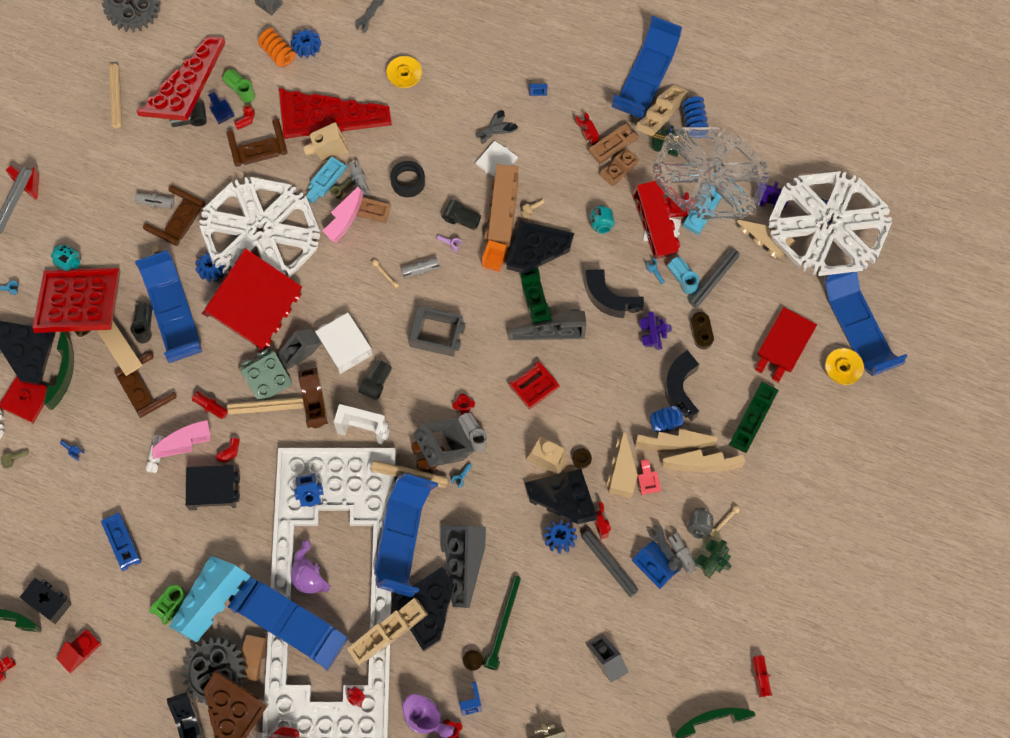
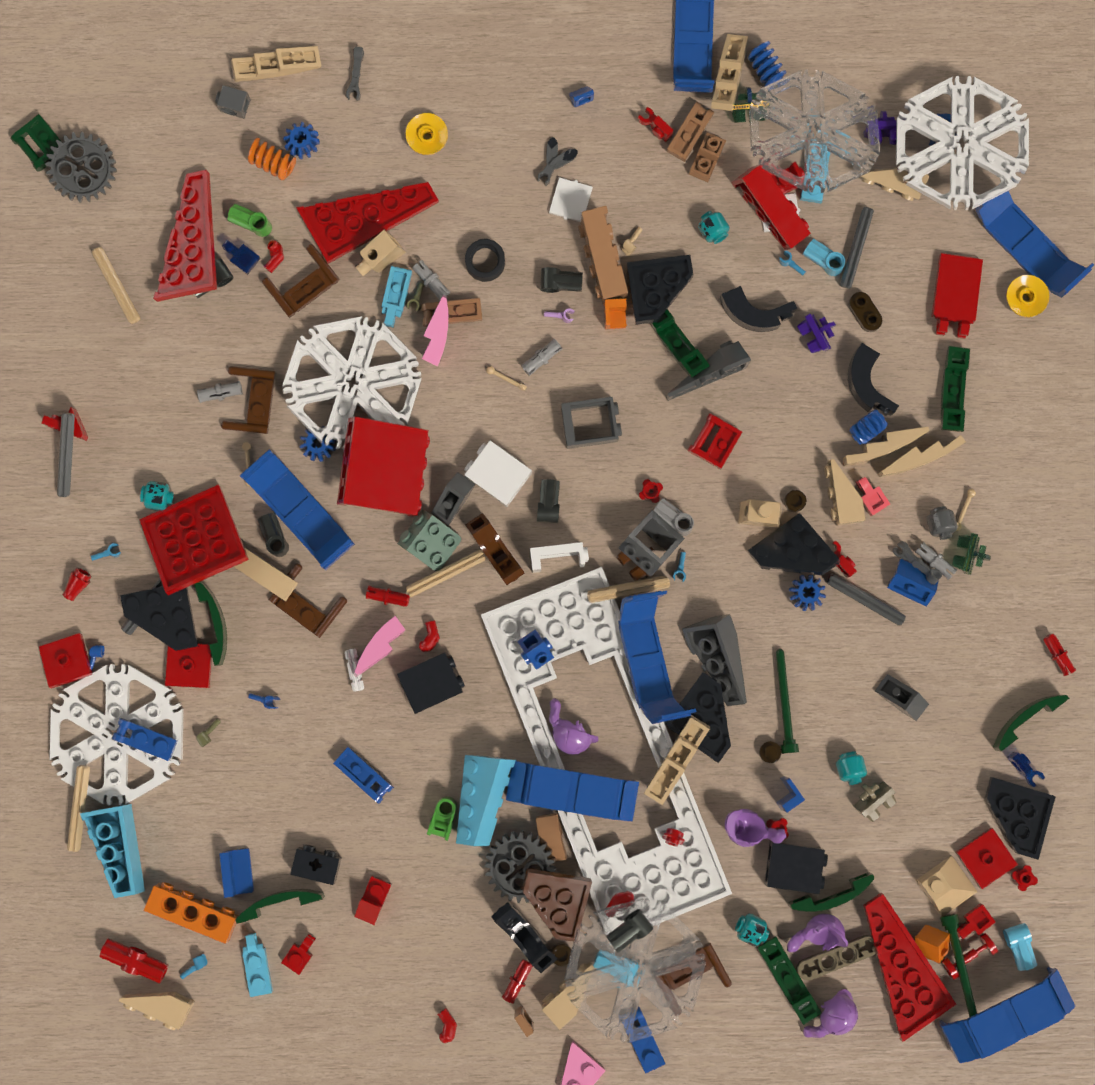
camera: 25 degrees left, 15 degrees up
(537, 701) = (851, 768): none -> teal head

